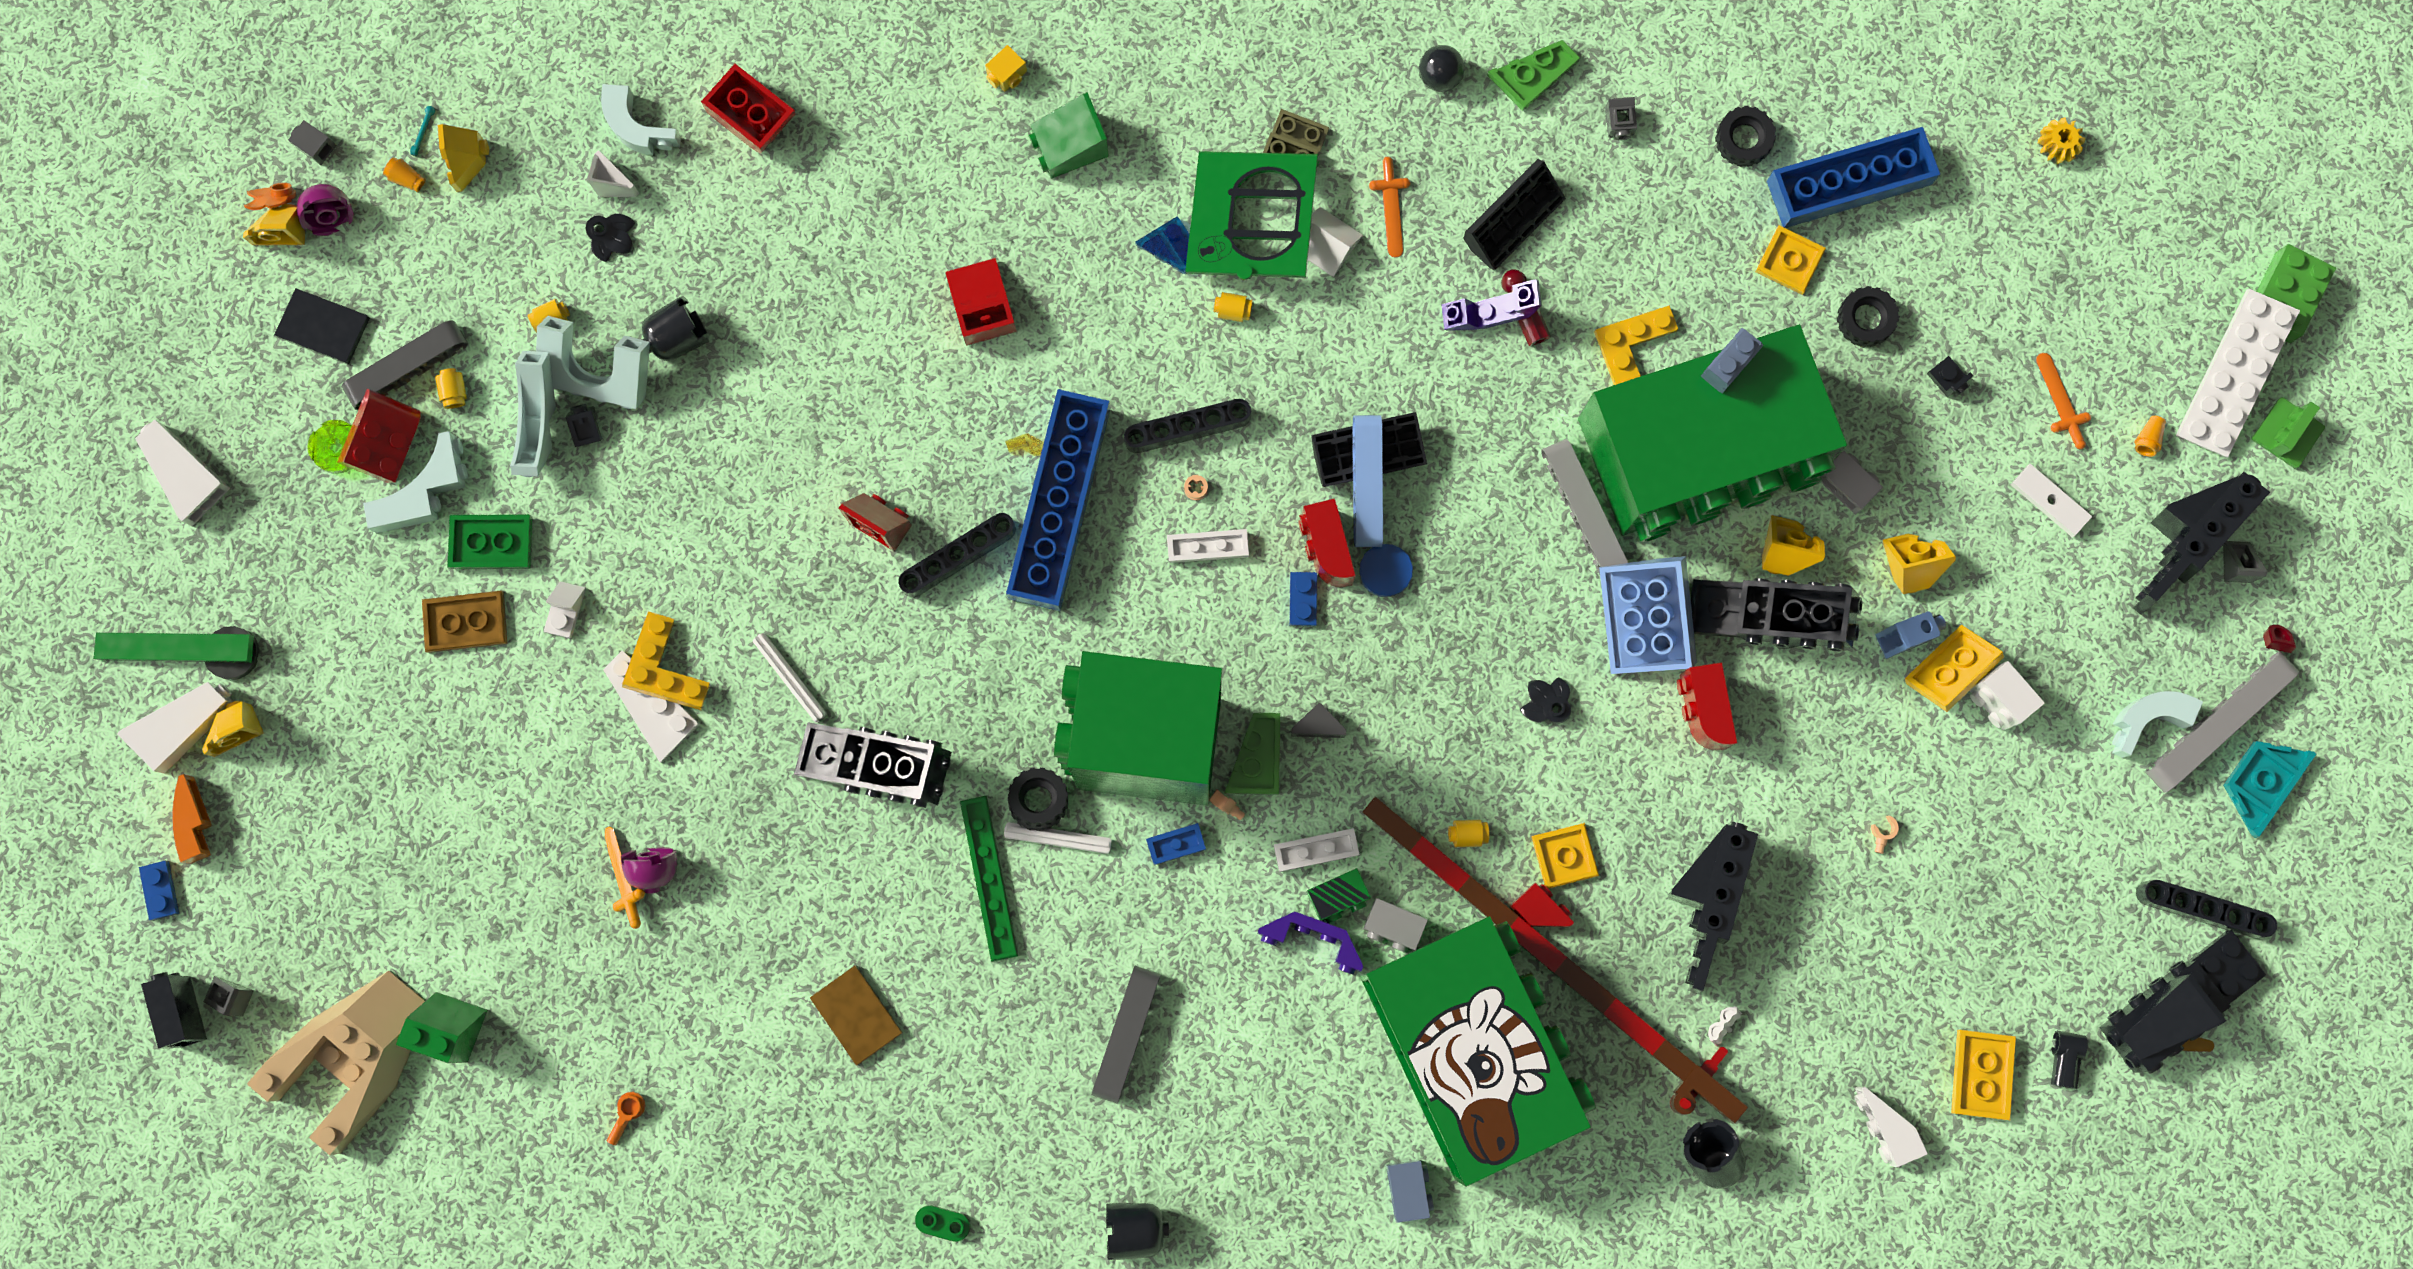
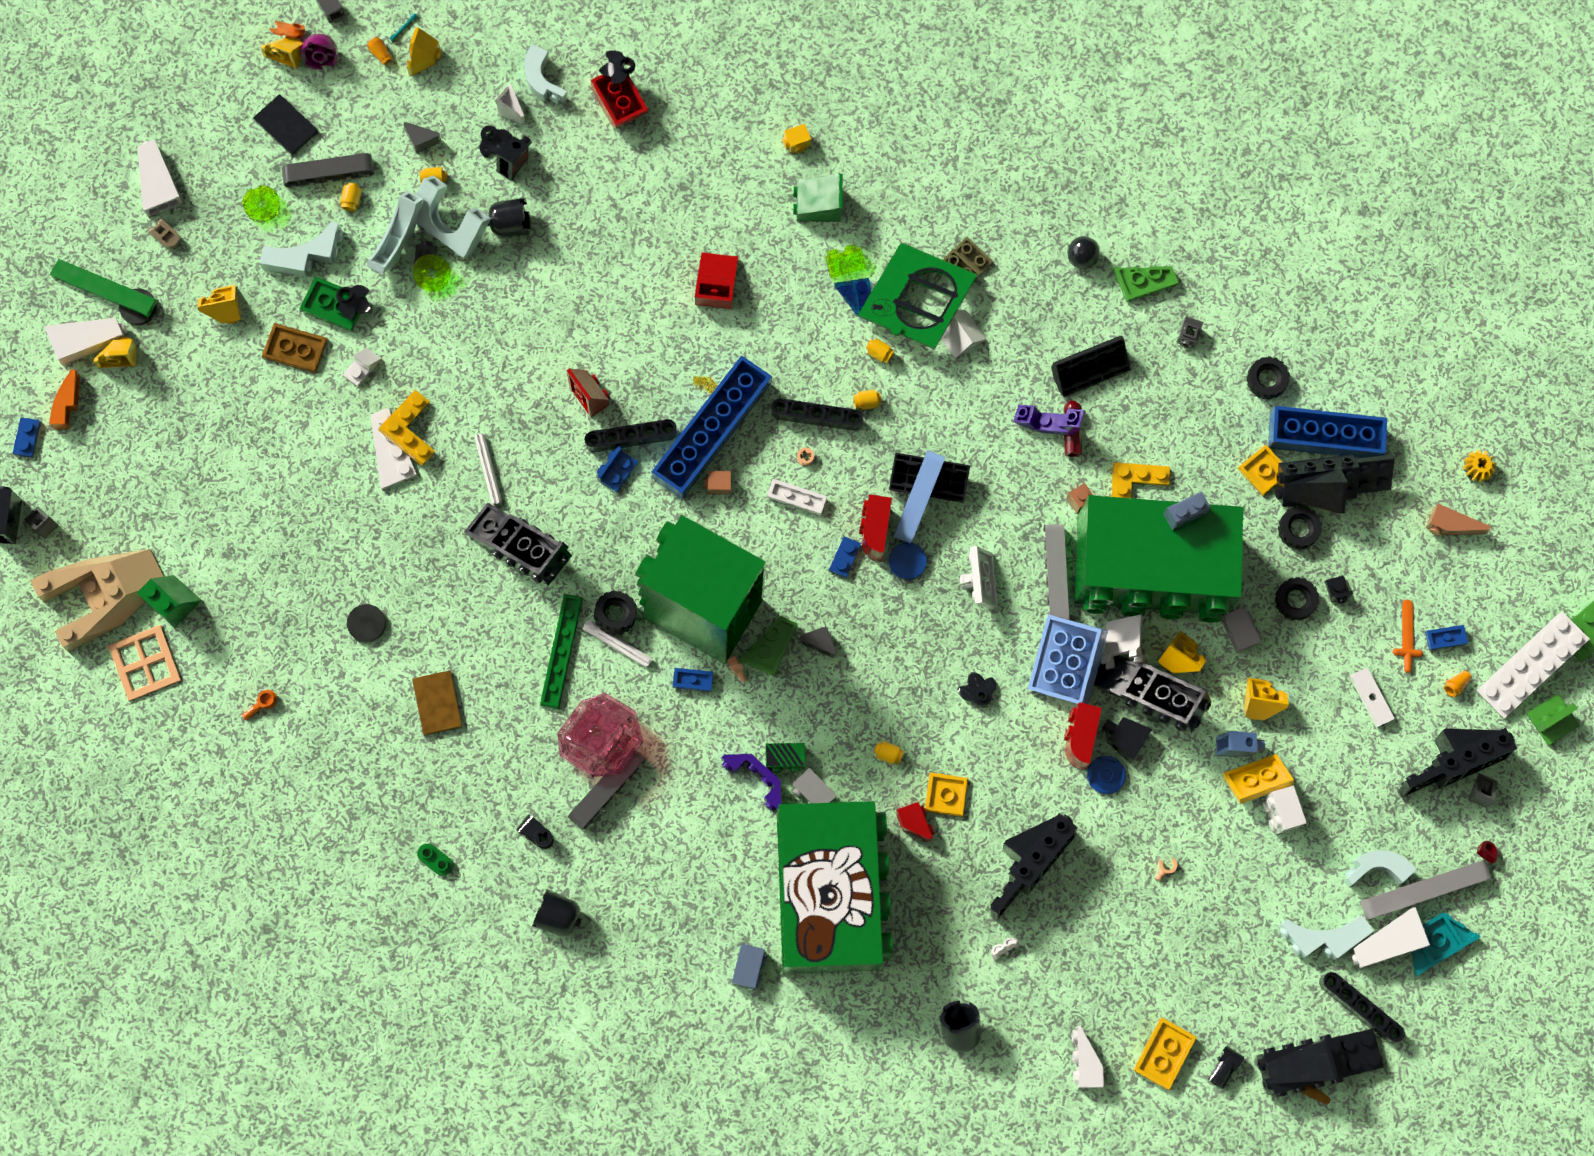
camera: 15 degrees right, 5 degrees down
(232, 542) = (168, 238): none -> dark tan plate
(342, 605) = (221, 305): none -> yellow slope
(380, 437) = (292, 209): red brick -> none
(447, 1125) = (144, 662): none -> light nougat window
(510, 270) = (421, 137): none -> dark grey slope
(518, 528) = (355, 303): none -> black plate
(617, 444) = (441, 277): none -> clear neon green plate
(628, 898) = (323, 562): light orange sword -> none
(642, 246) = (512, 156): none -> black torso
(649, 869) = (345, 553): magenta cylinder -> none
(717, 949) = (366, 623): none -> pearl dark grey tile
(726, 70) = (614, 67): none -> black plate
(958, 607) = (616, 469): none -> blue bracket
(1053, 1132) = (534, 830): none -> black piece
(1098, 570) = (718, 482): none -> nougat brick
(1113, 978) = (612, 748): none -> clear pink piece
(1136, 206) = (844, 261): none -> clear neon green bracket
(1244, 379) = (867, 399): none -> yellow brick
(1316, 850) = (783, 721): white plate -> none
(1391, 205) = (1013, 327): orange sword -> none
(1492, 554) = (981, 578): none -> white plate
(1573, 394) = (1078, 497): none -> nougat brick
(1694, 1079) = (968, 975): reddish brown piece -> none
(1708, 558) = (1122, 638): none -> white flag
(1751, 748) = (1103, 780): none -> blue tile
(1764, 683) = (1126, 737): none -> black torso
(1886, 239) = (1332, 480): none -> black wedge
(1917, 396) = (1304, 586): none -> black tyre
(2051, 230) = (1450, 522): none -> nougat slope
(2112, 382) = (1446, 637): none -> blue plate
(2137, 837) = (1334, 941): none -> light aqua arch
(2212, 804) = (1393, 940): none -> white slope

